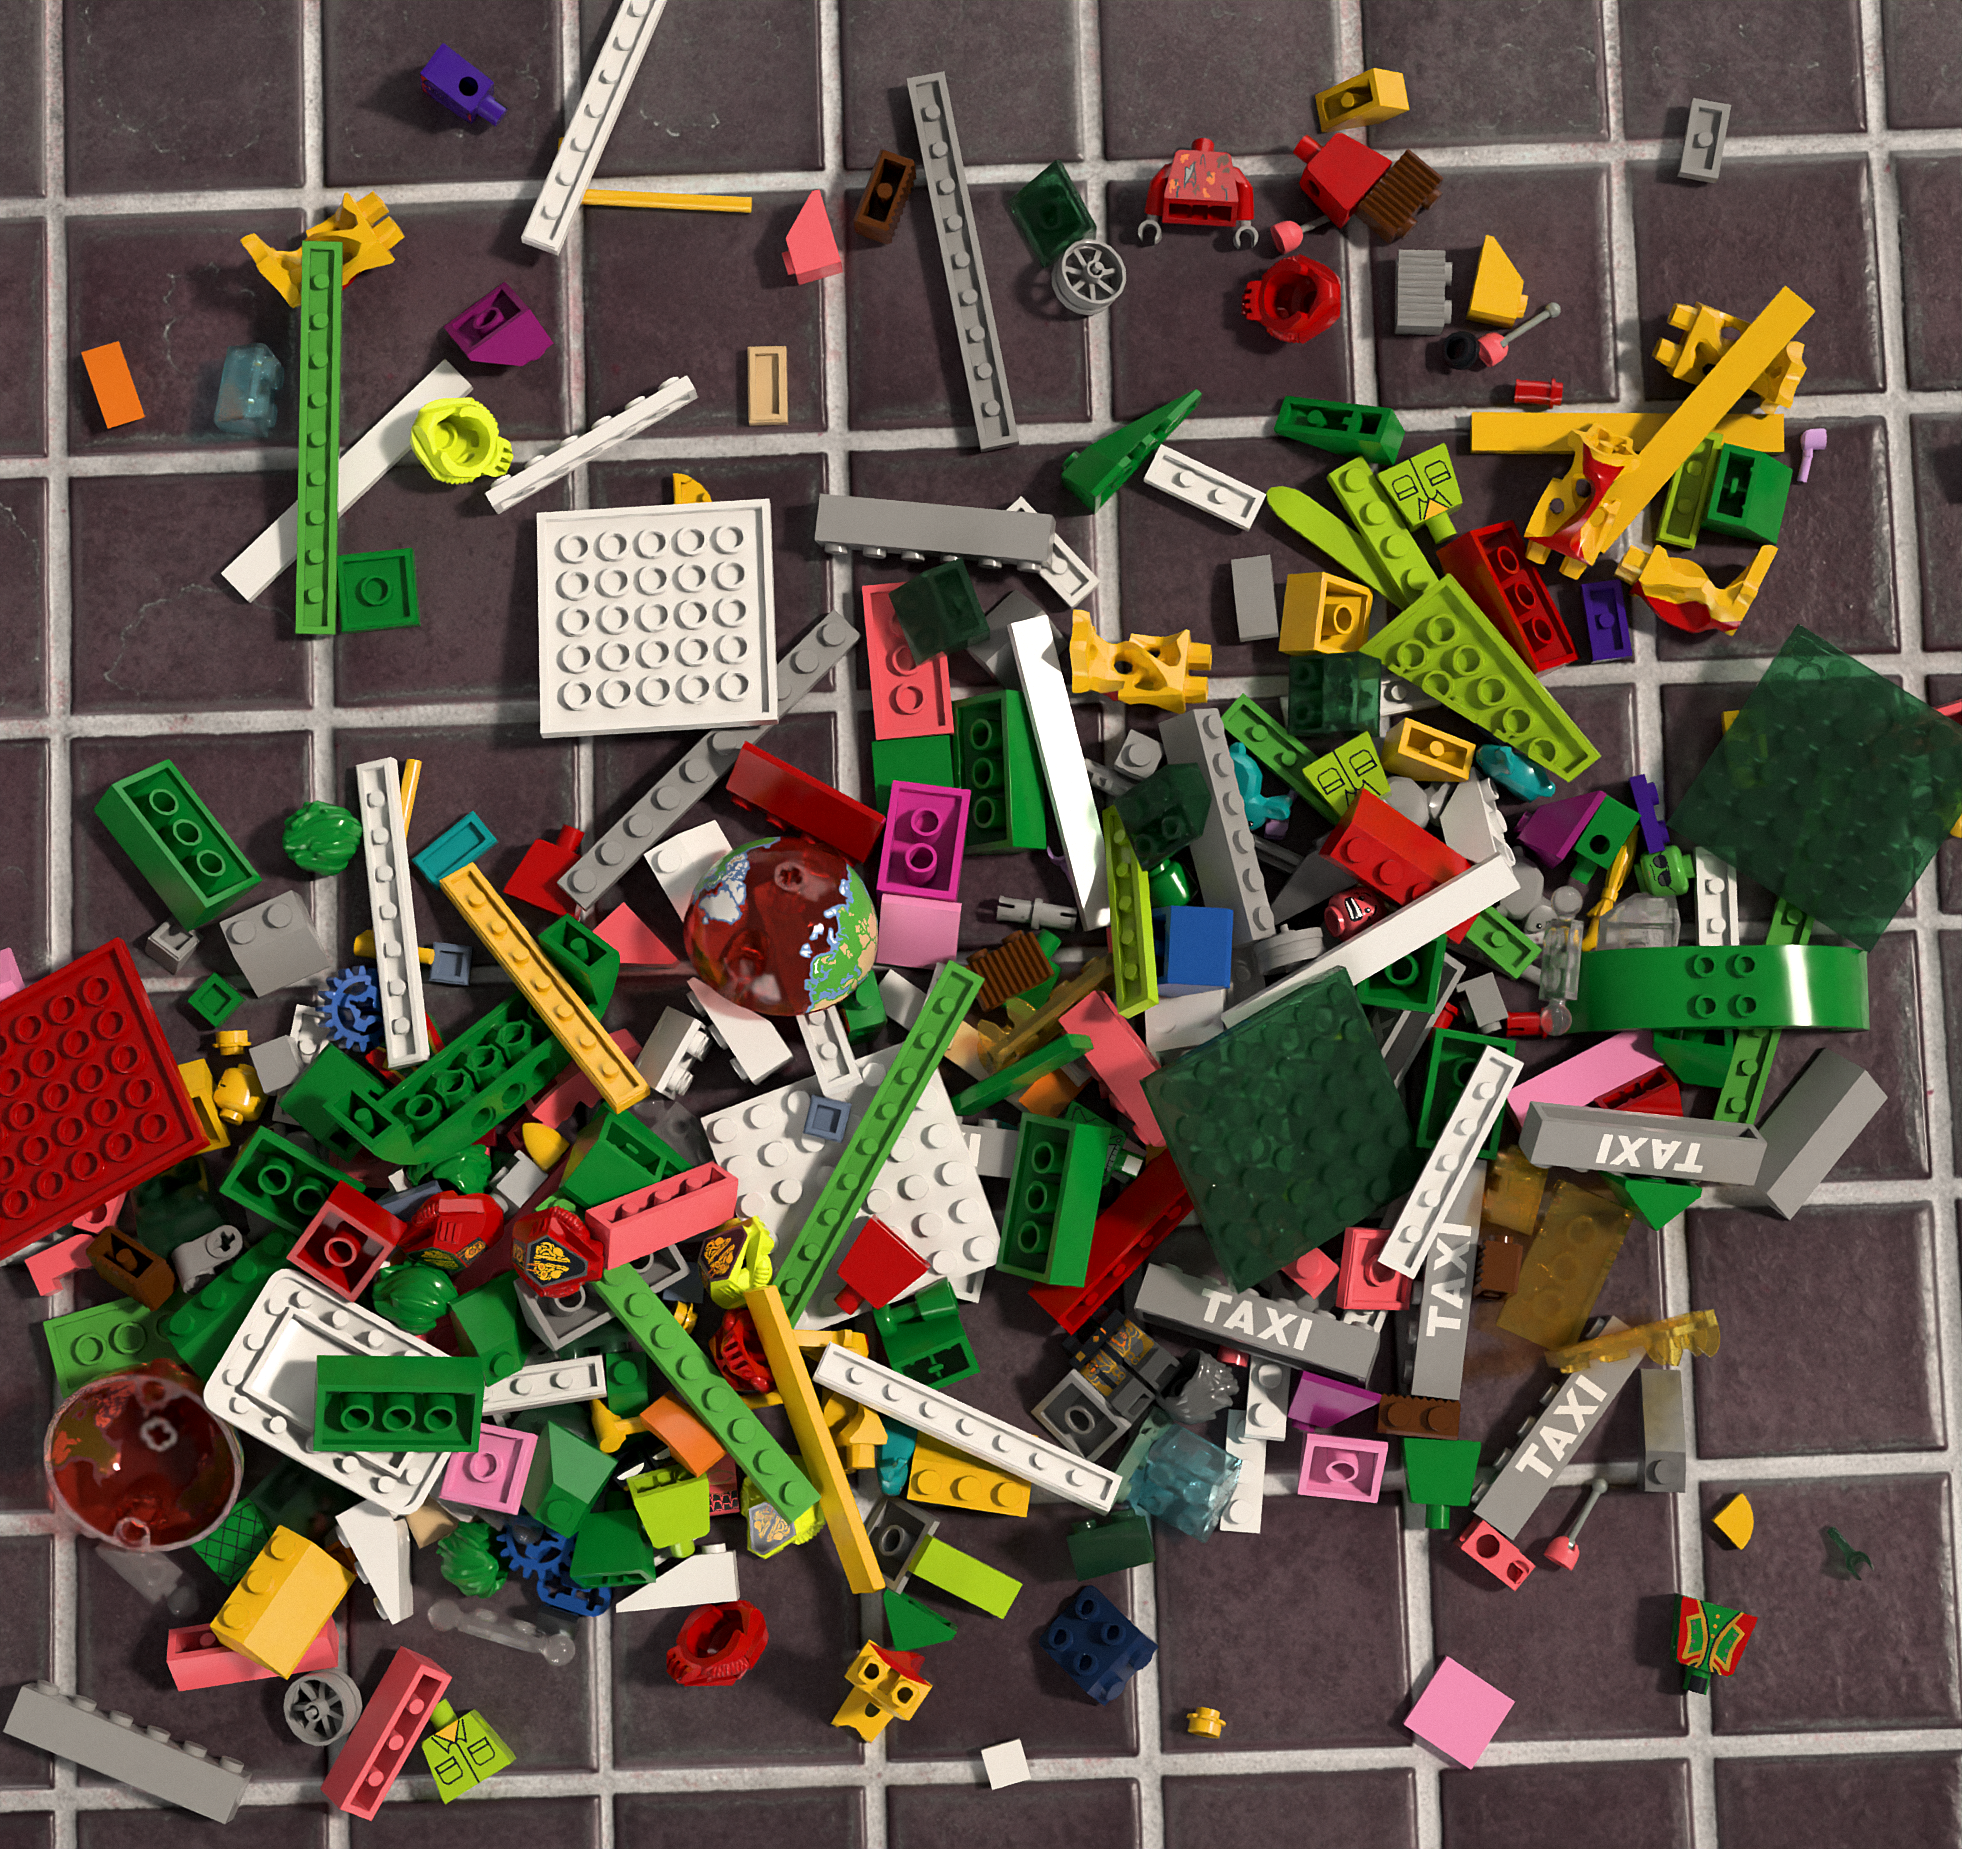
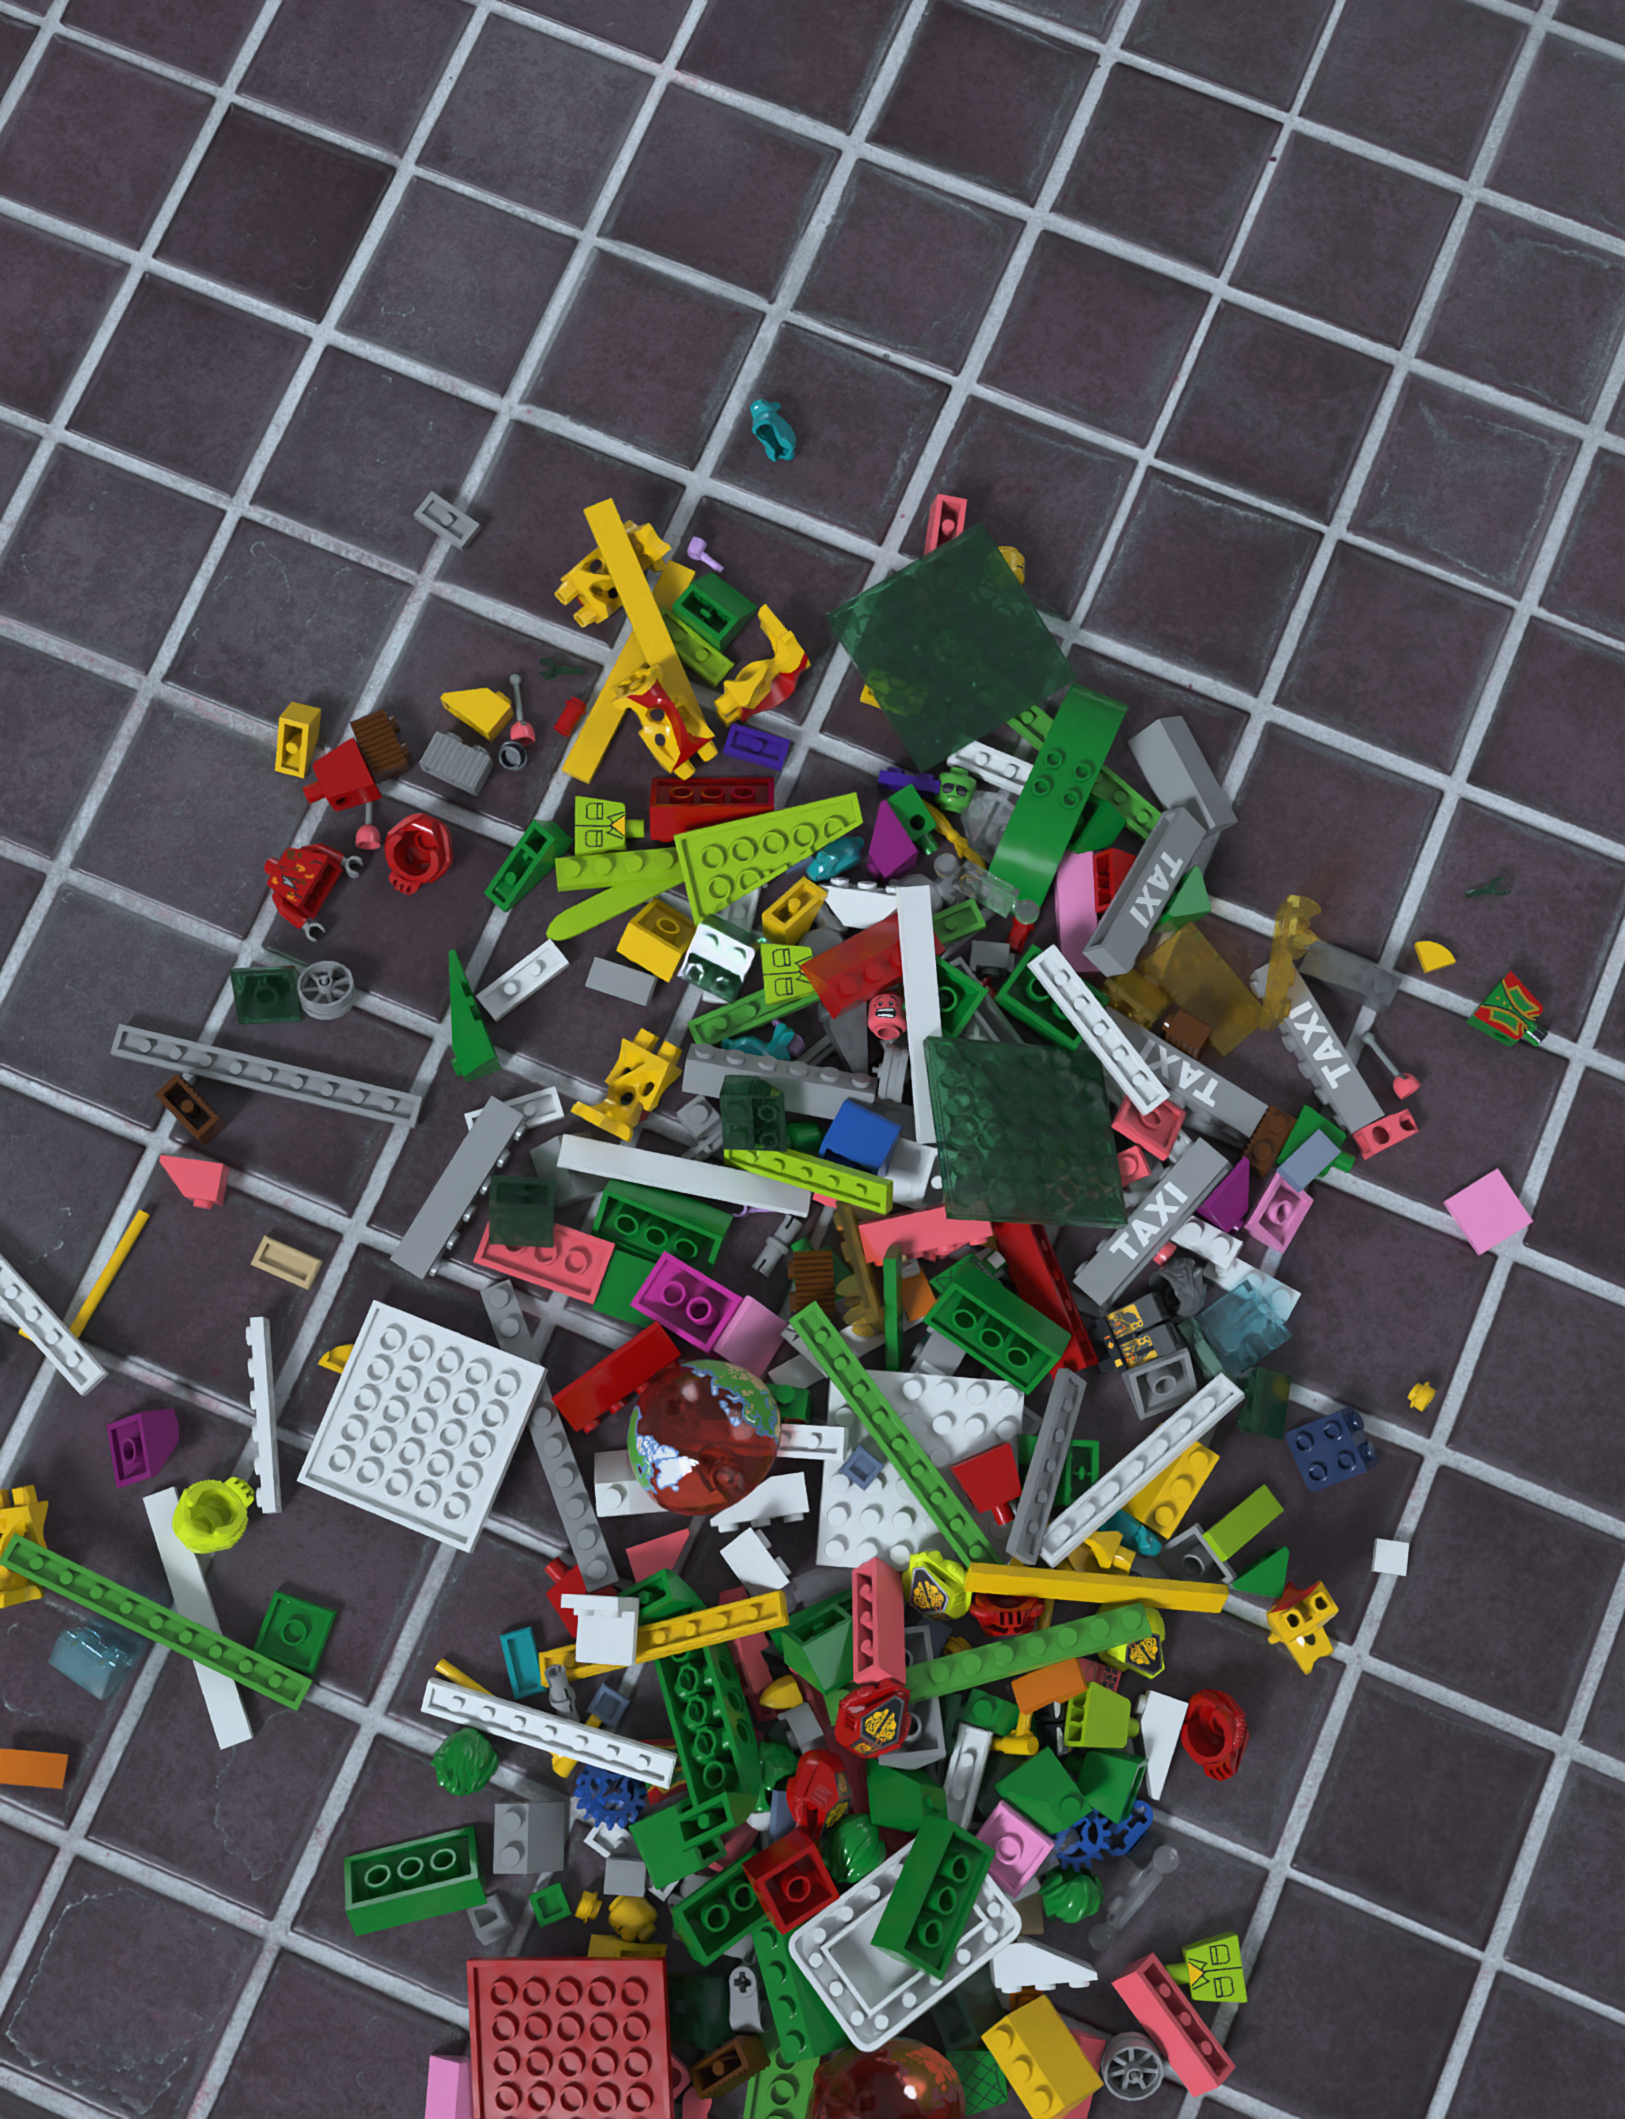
camera: 75 degrees left, 5 degrees down
(438, 906) = (561, 1694): none -> light grey pin
(527, 917) = (605, 1628): none -> white bracket
(922, 1323) = (1046, 1466): none -> light grey plate
(1413, 1472) = (1308, 1161): none -> sand blue tile
(1589, 354) = (557, 670): none -> clear green hand

